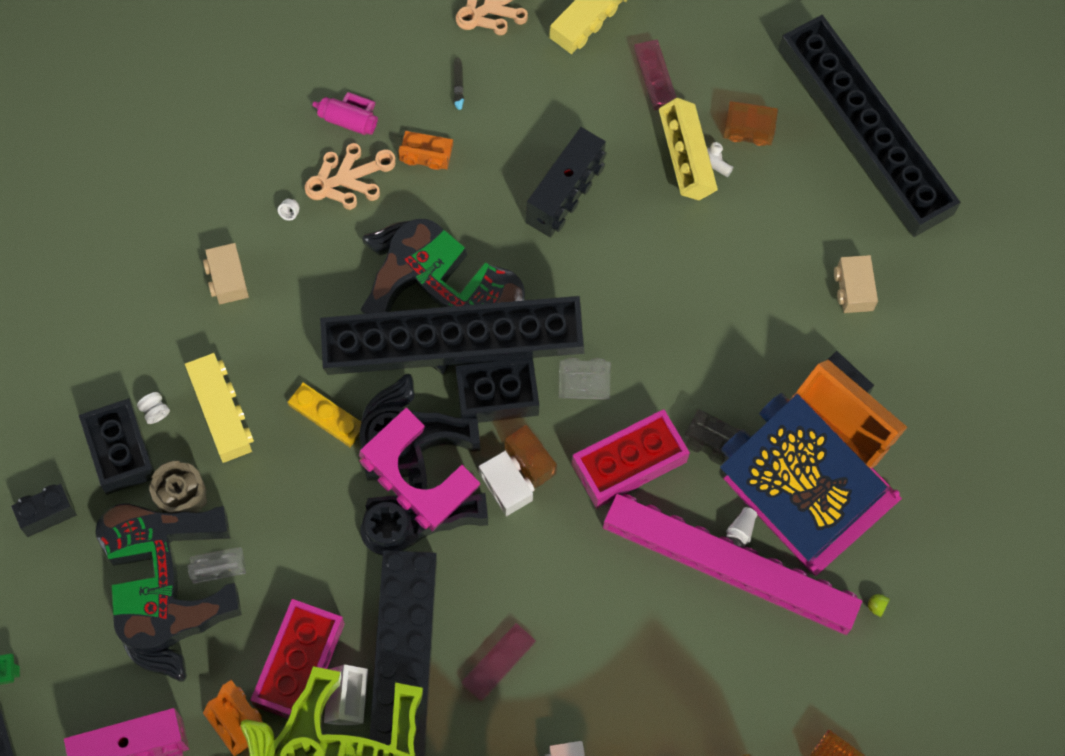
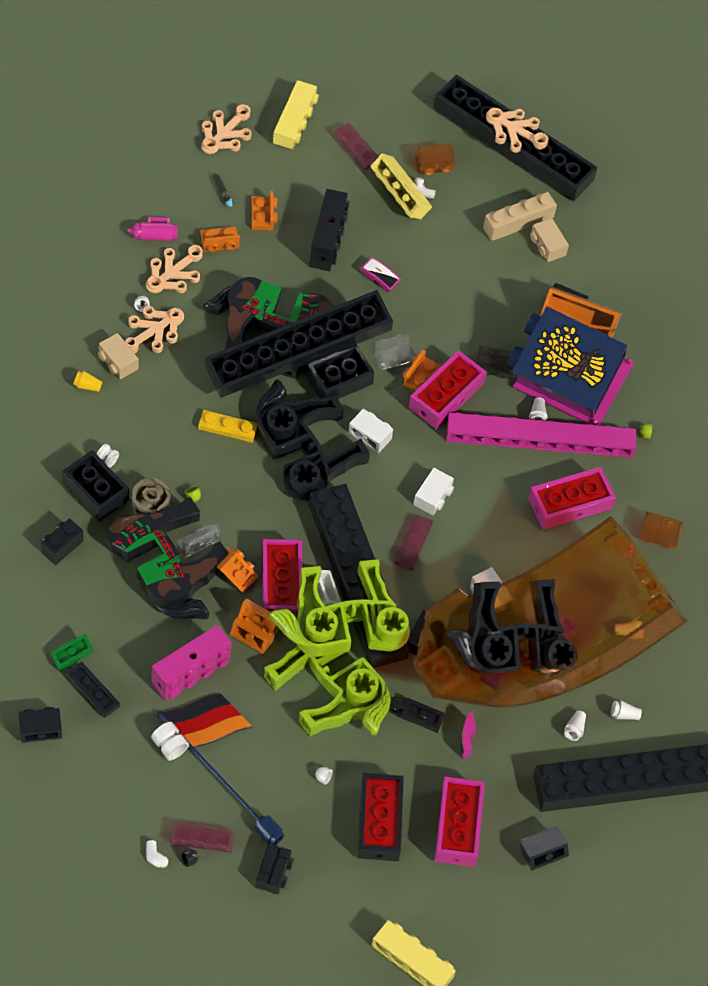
camera: 25 degrees left, 10 degrees down
(173, 296) = (86, 381): none -> yellow cone
(218, 407) = (154, 441): light yellow brick -> none
(239, 496) = (193, 492): none -> lime hinge
(245, 628) = (237, 570): none -> orange bracket
(291, 248) = (155, 327): none -> light nougat plant
(429, 505) = (328, 453): dark pink arch -> none
(496, 130) = (263, 212): none -> orange bracket
(531, 456) = (381, 407): clear orange brick -> none
(553, 599) = (433, 491): none -> white brick
(608, 418) = (420, 371): none -> orange bracket
(612, 262) = (380, 273): none -> slope
(734, 673) = (571, 498): none -> brick
(830, 237) = (519, 216): none -> tan brick
(870, 113) = (515, 127): none -> light nougat plant

